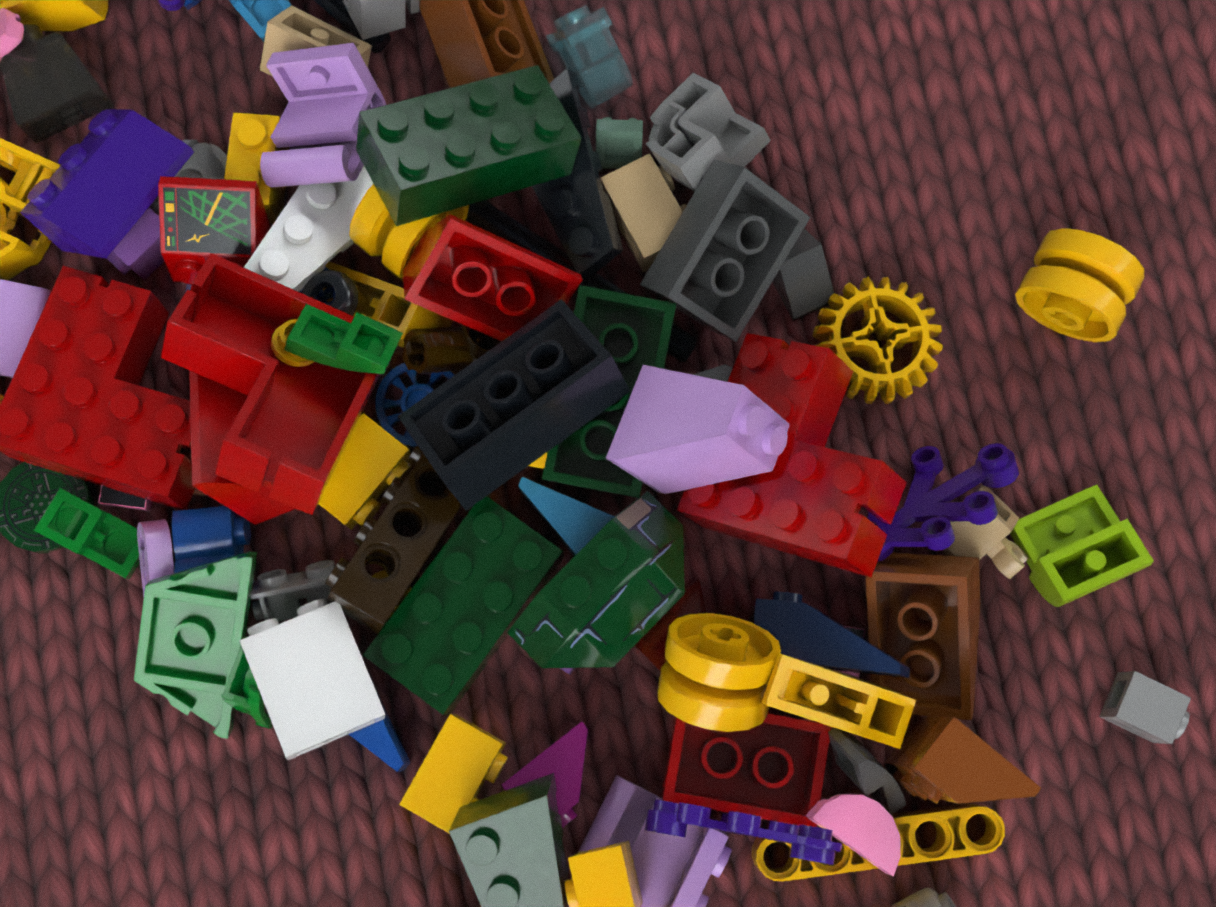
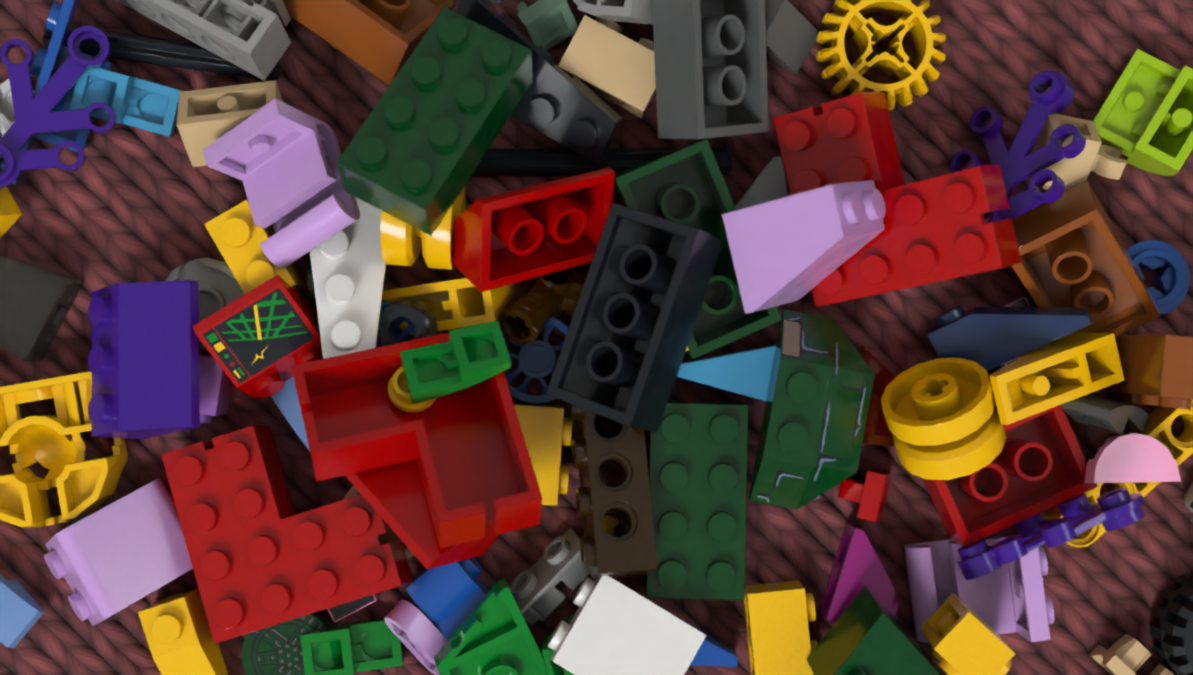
camera: 35 degrees left, 10 degrees up
(617, 706) = (869, 494): none -> red tile
(1004, 704) = (1172, 279): none -> blue gear

